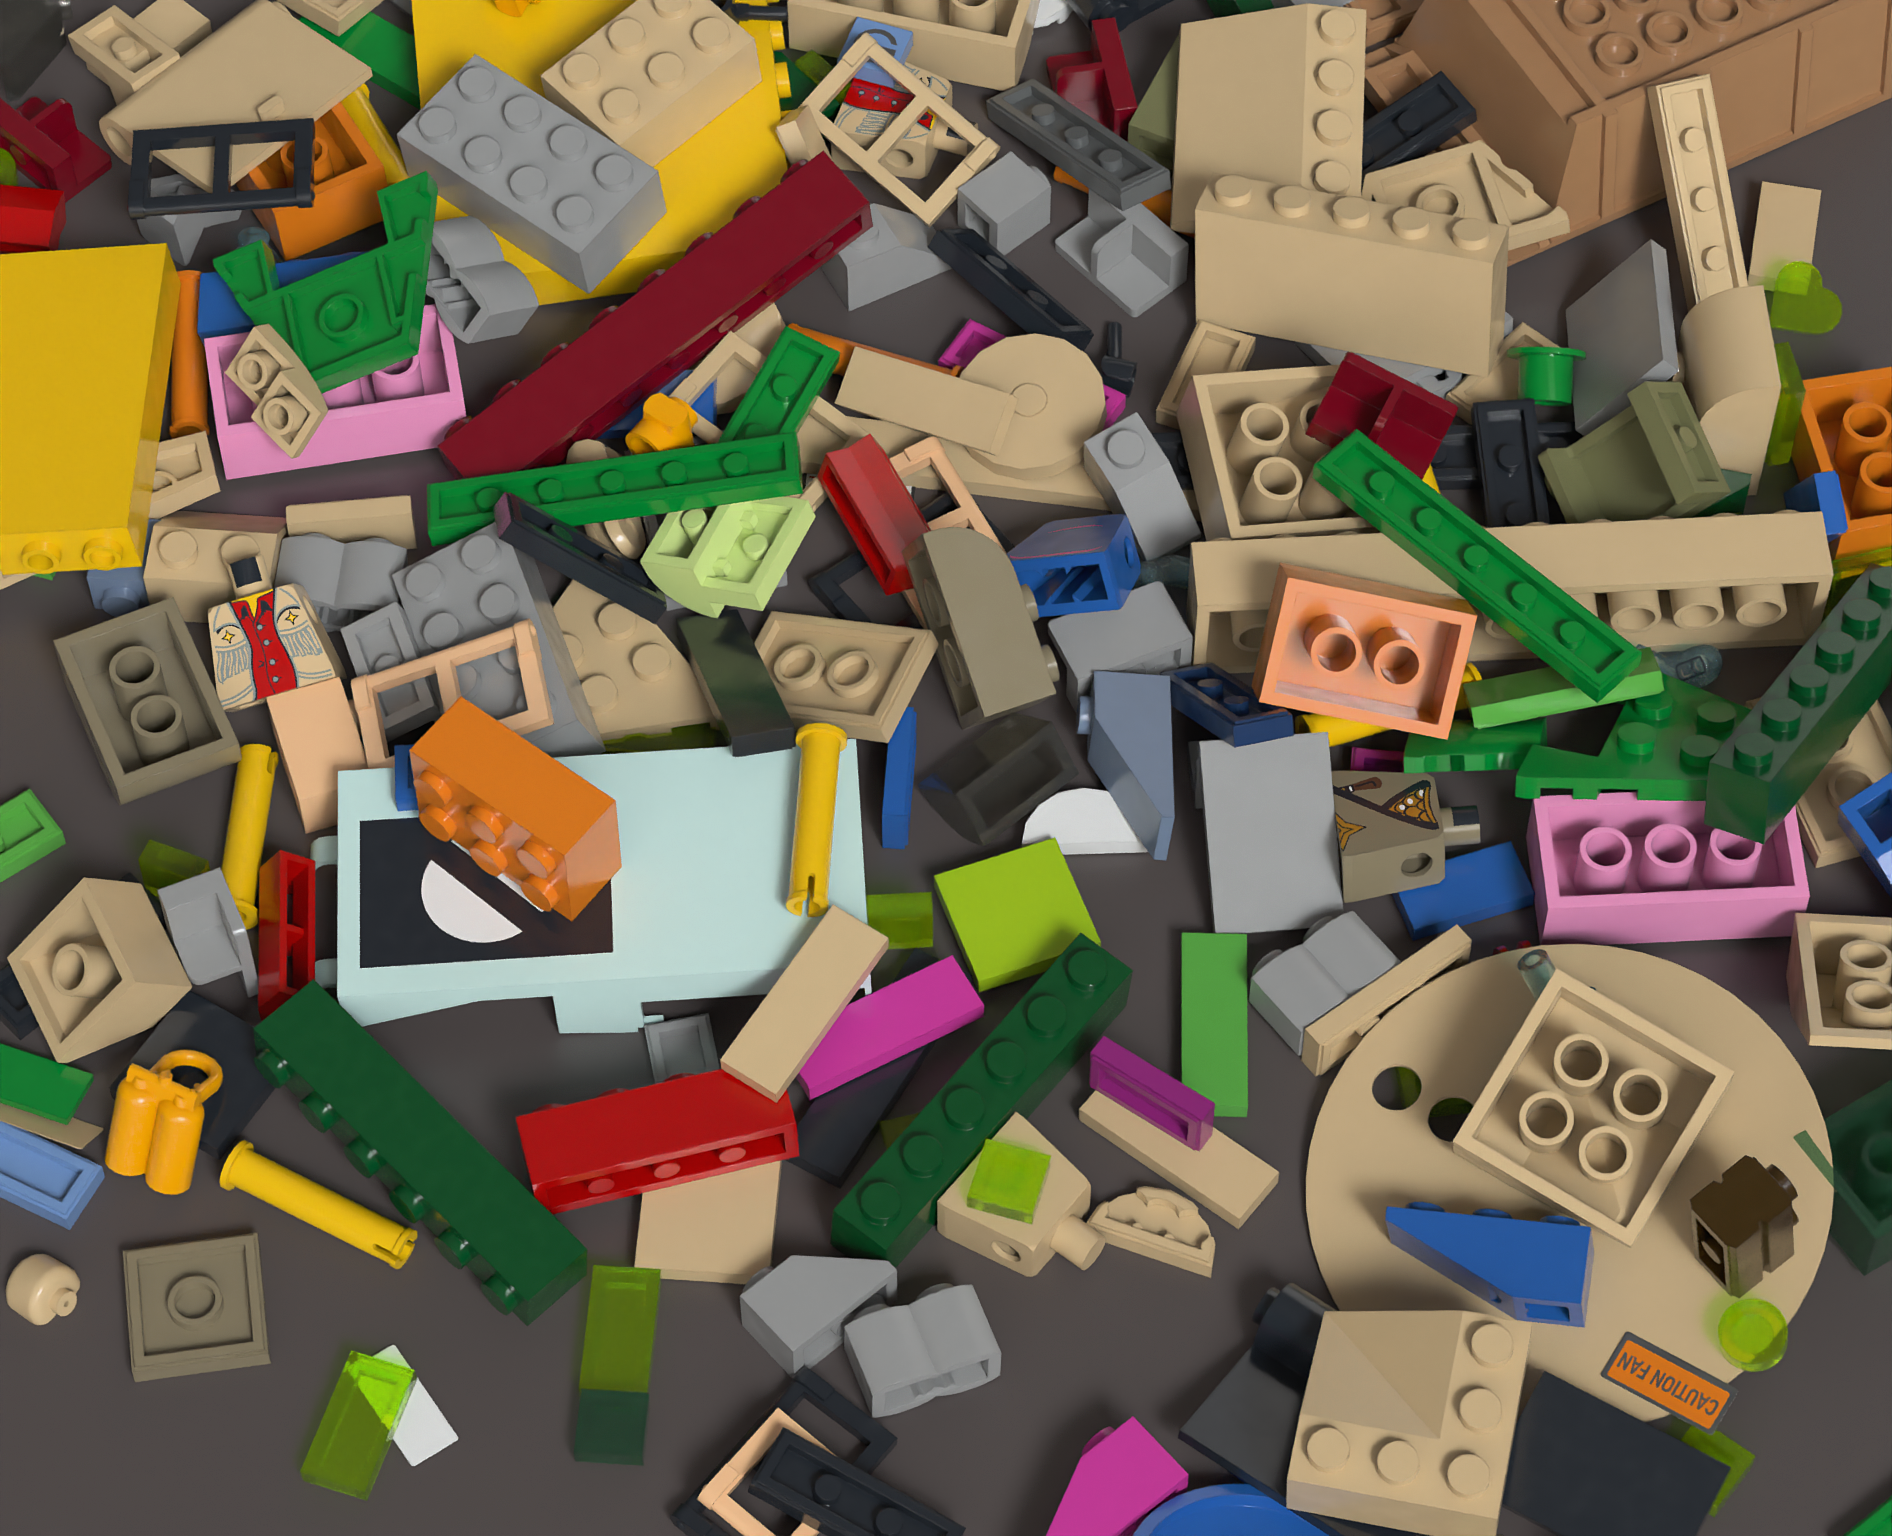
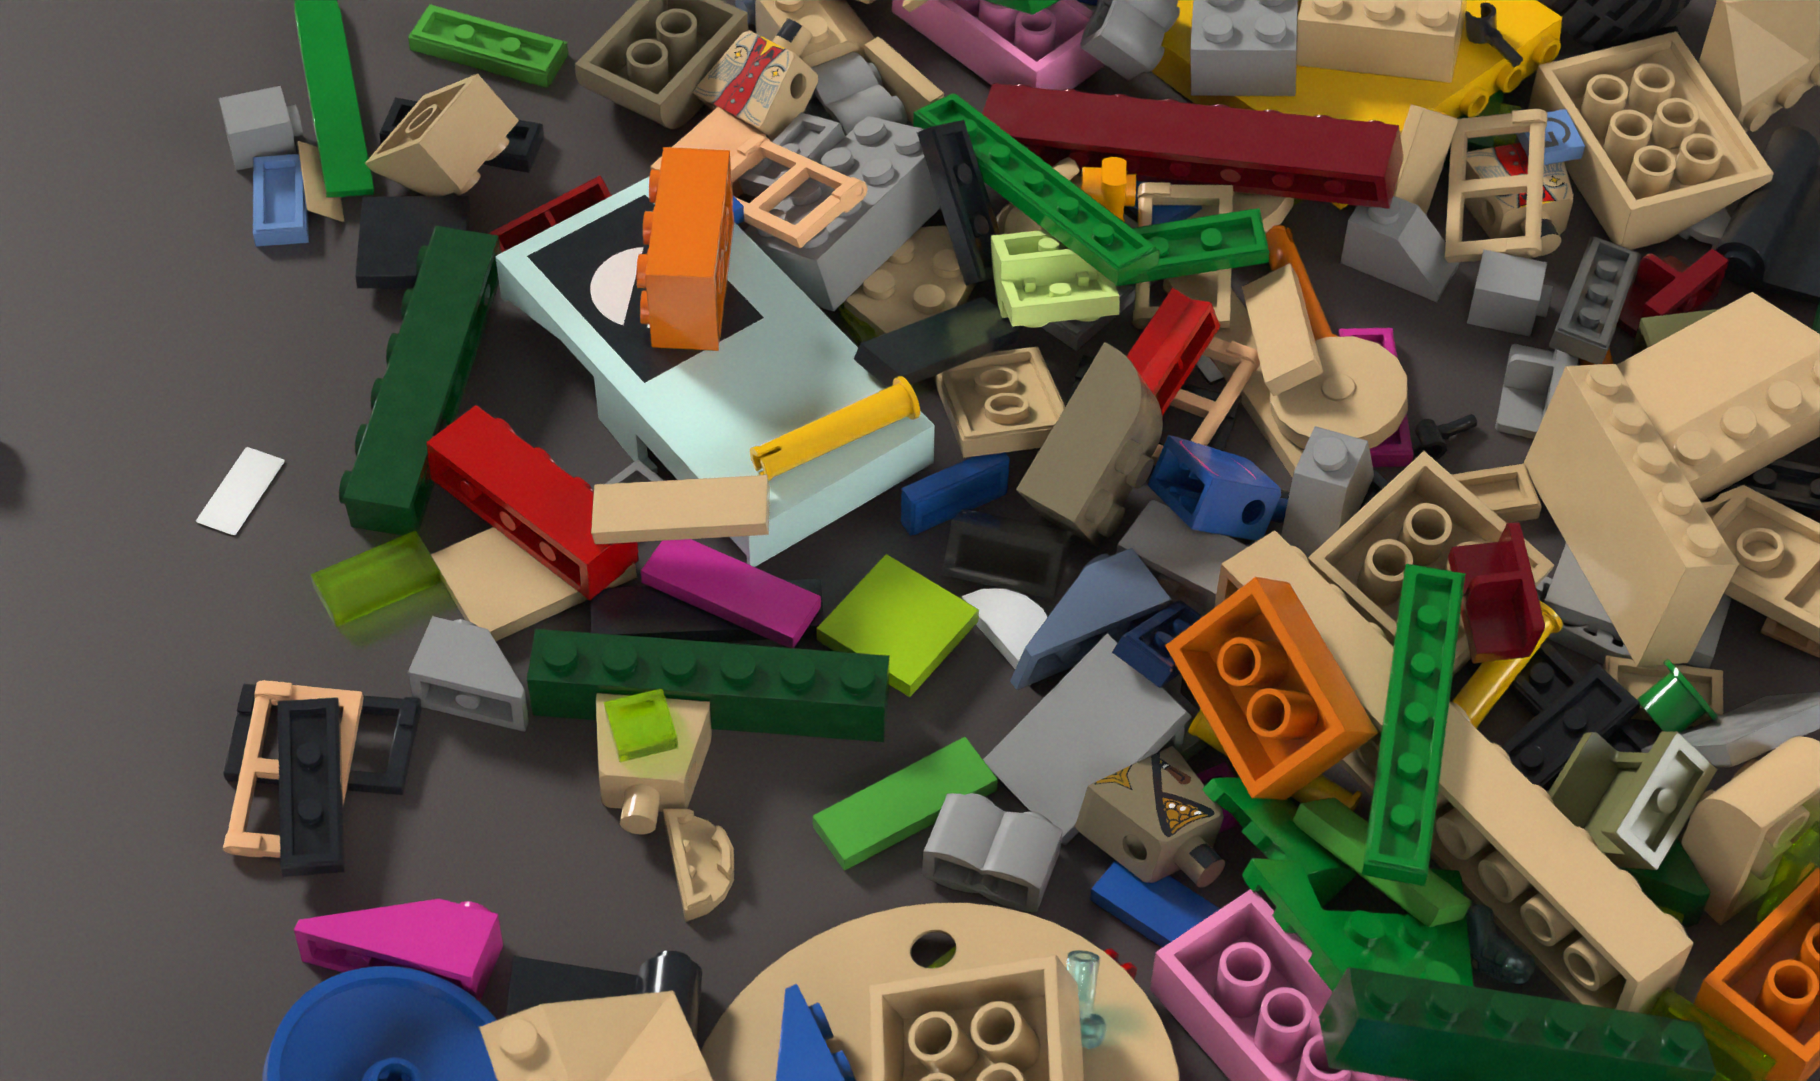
camera: 55 degrees right, 5 degrees down
(42, 1288) = (199, 254): tan piece -> none
(160, 1121) = (343, 232): light orange piece -> none
(166, 865) = (554, 146): clear neon green tile -> none
(196, 1307) = (237, 338): dark tan tile -> none
(208, 930) = (513, 171): light grey panel -> none
(248, 827) = (611, 166): yellow pin -> none
(317, 1205) = (356, 352): yellow pin -> none
(358, 1425) = (202, 471): clear neon green tile -> none
(612, 1427) = (296, 613): clear green tile -> none
(902, 918) = (833, 555): clear neon green tile -> none
(921, 1349) = (479, 759): light grey brick -> none
(1008, 286) = (1437, 336): black tile -> none
(1151, 1094) = (791, 781): magenta tile -> none
(1218, 1177) = (779, 837): tan tile -> none
(1342, 1029) = (955, 881): tan tile -> none
(1818, 494) = (1709, 950): blue tile -> none

